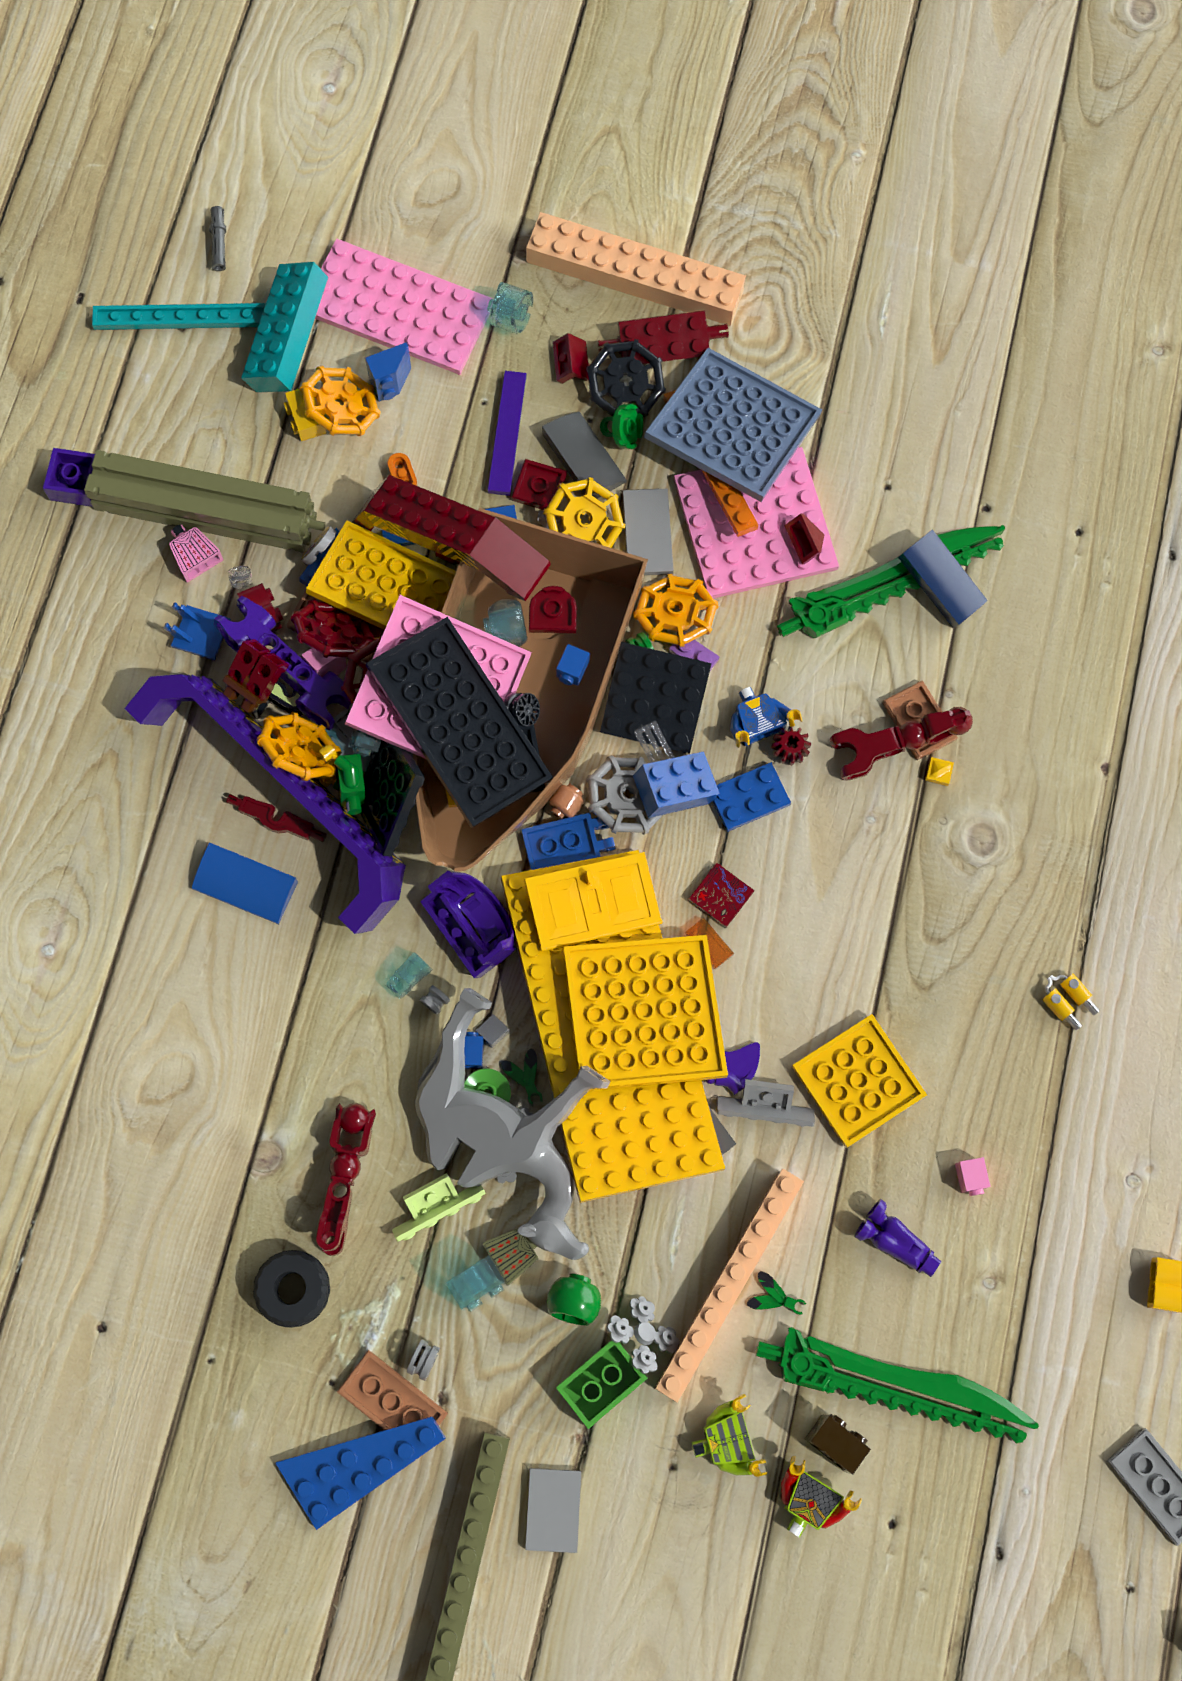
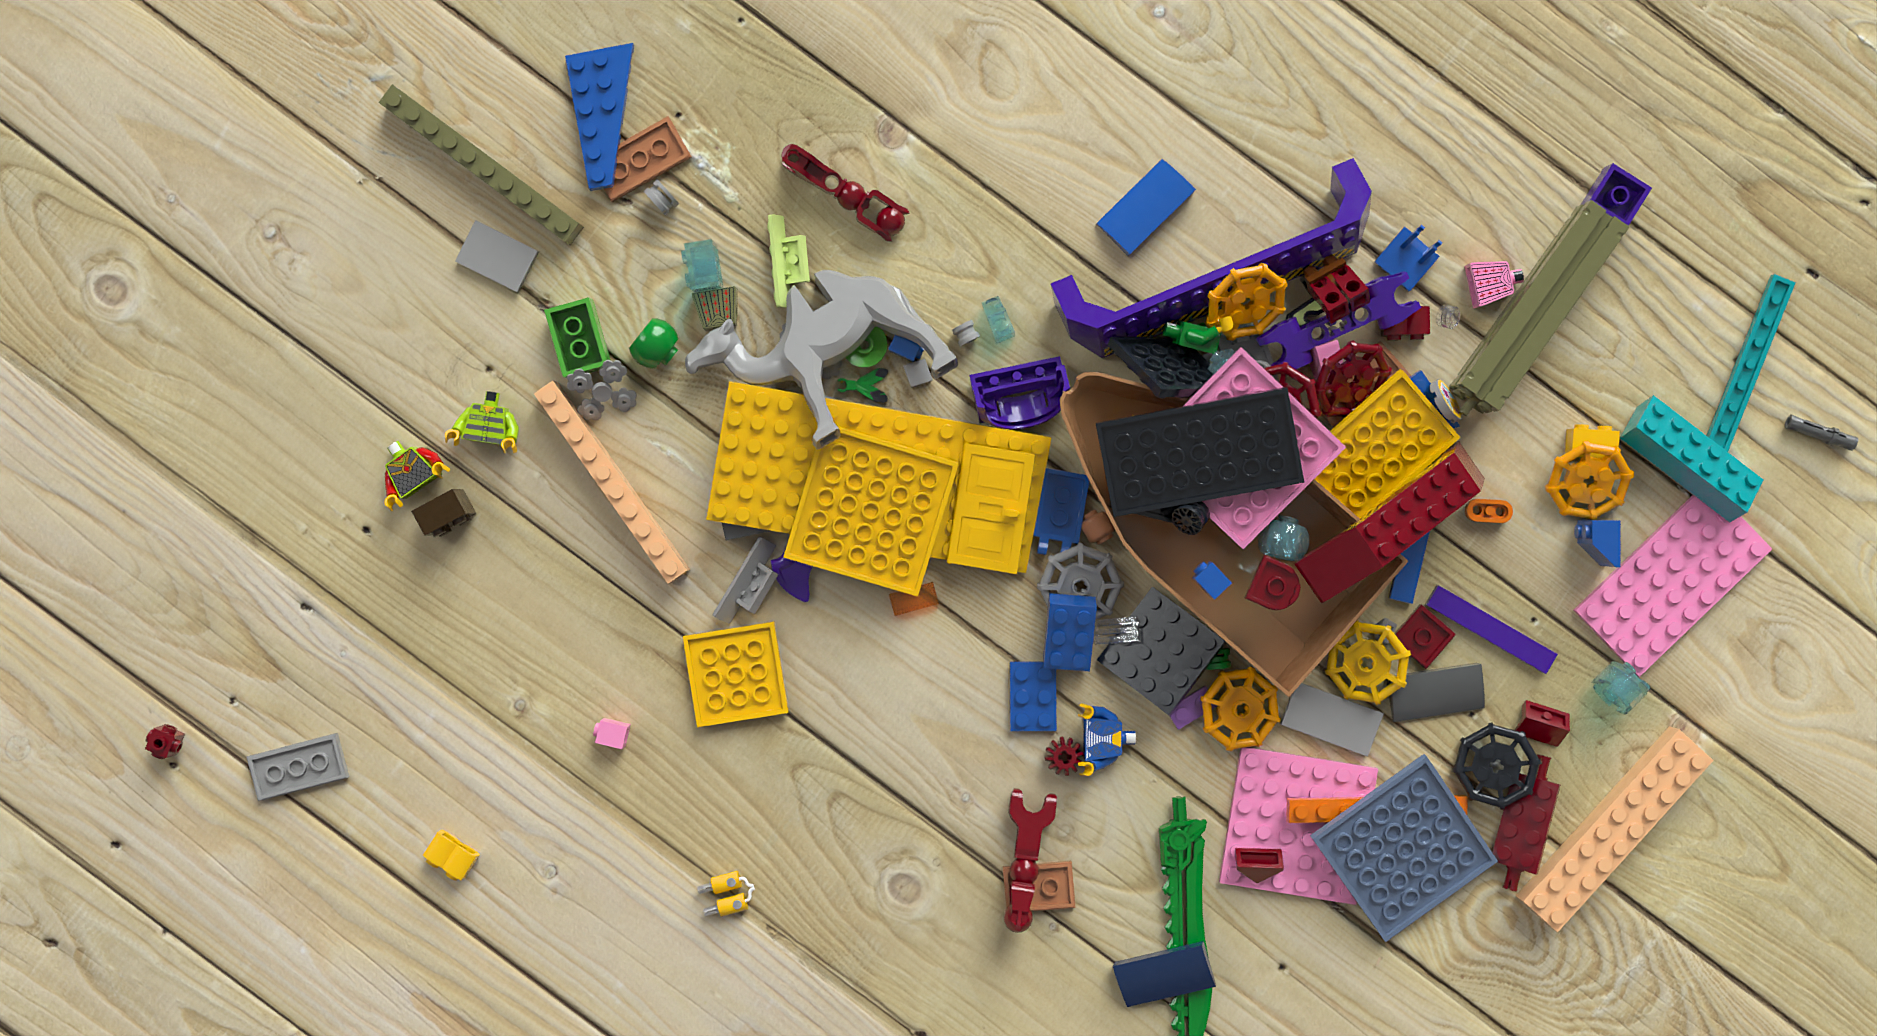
camera: 110 degrees right, 15 degrees up
(267, 1284) = (764, 88): black tyre -> none
(287, 823) = (1203, 250): dark red piece -> none
(626, 426) = (1447, 744): green tile -> none
(721, 895) = (952, 629): dark red tile -> none
(776, 1298) = (585, 517): green piece -> none
(816, 1373) = (510, 522): green piece -> none
(897, 1240) = (587, 642): dark purple piece -> none
(939, 771) = (982, 881): yellow tile -> none

